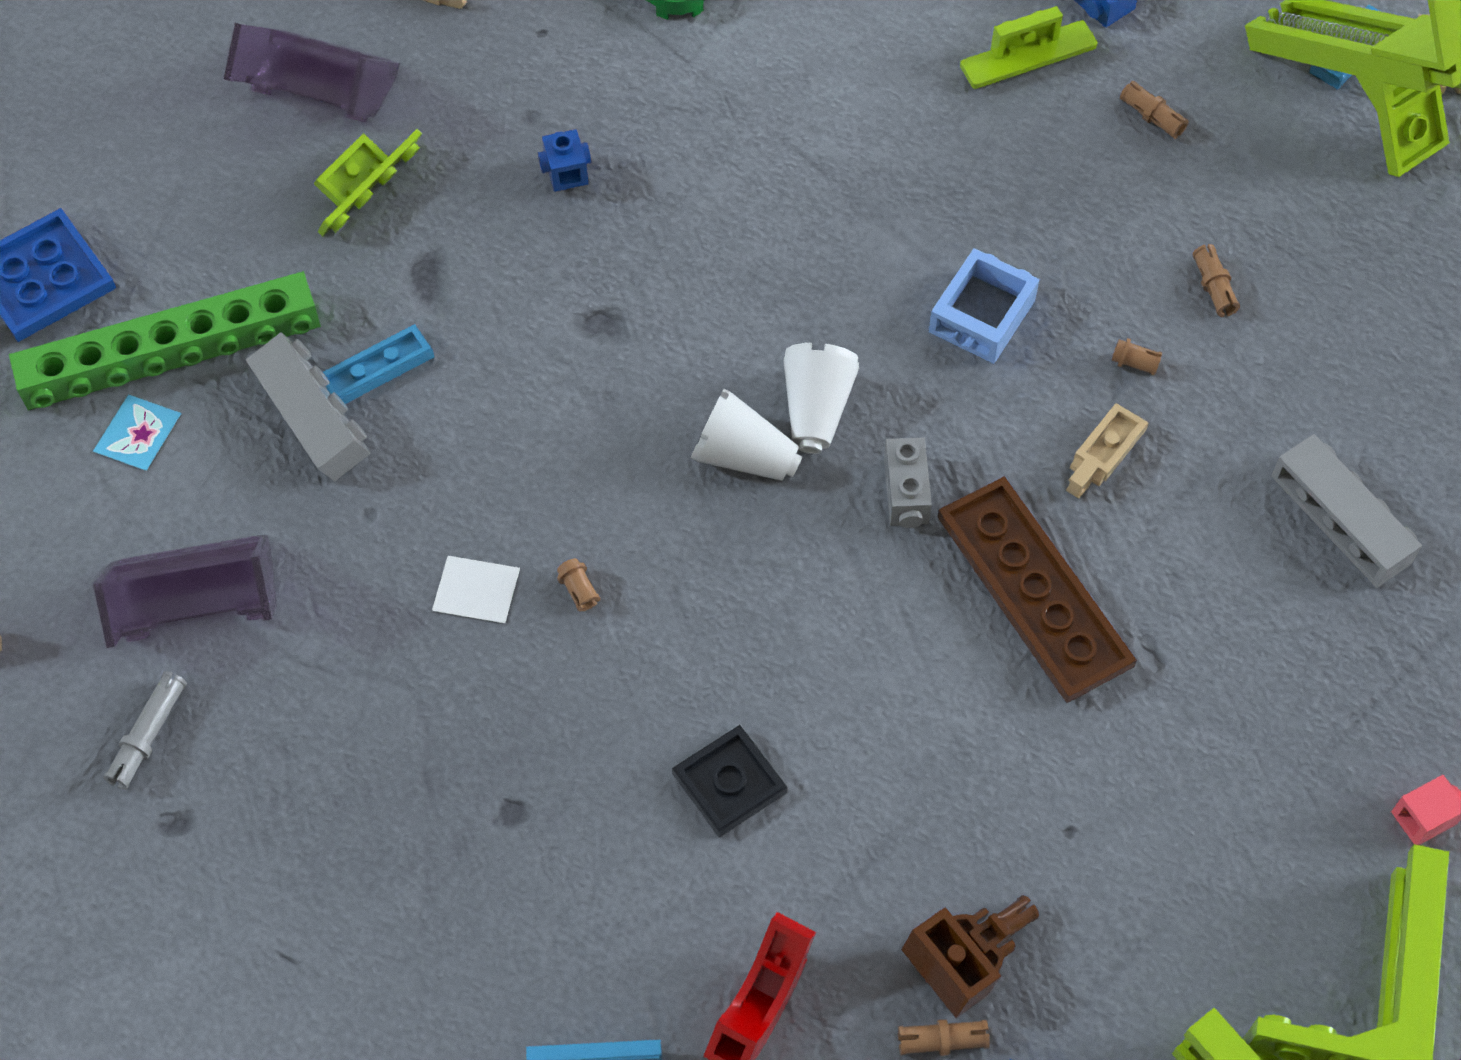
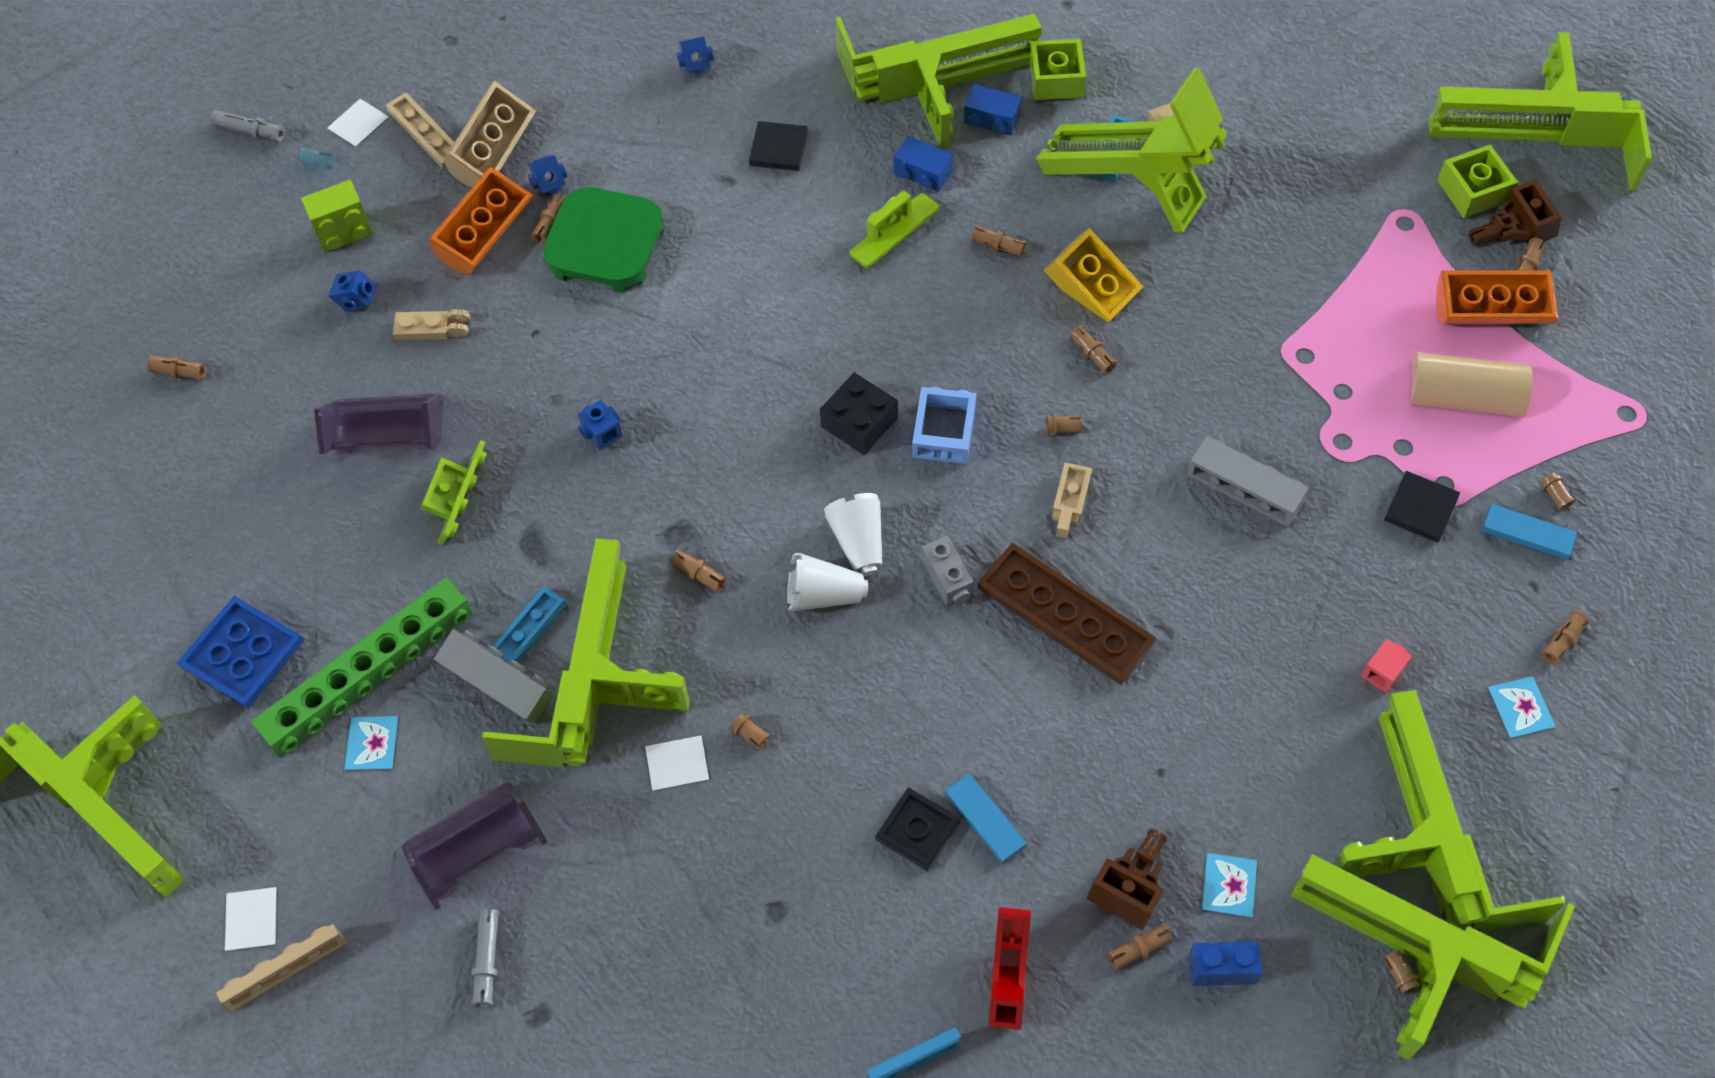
camera: 20 degrees left, 0 degrees up
(416, 442) = (592, 677): none -> lime piece
(604, 372) = (698, 570): none -> medium nougat pin
(819, 801) = (985, 818): none -> dark azure tile
(883, 254) = (859, 413): none -> black brick
(1097, 1007) = (1229, 885): none -> medium azure sticker
(1256, 190) = (1093, 276): none -> yellow slope

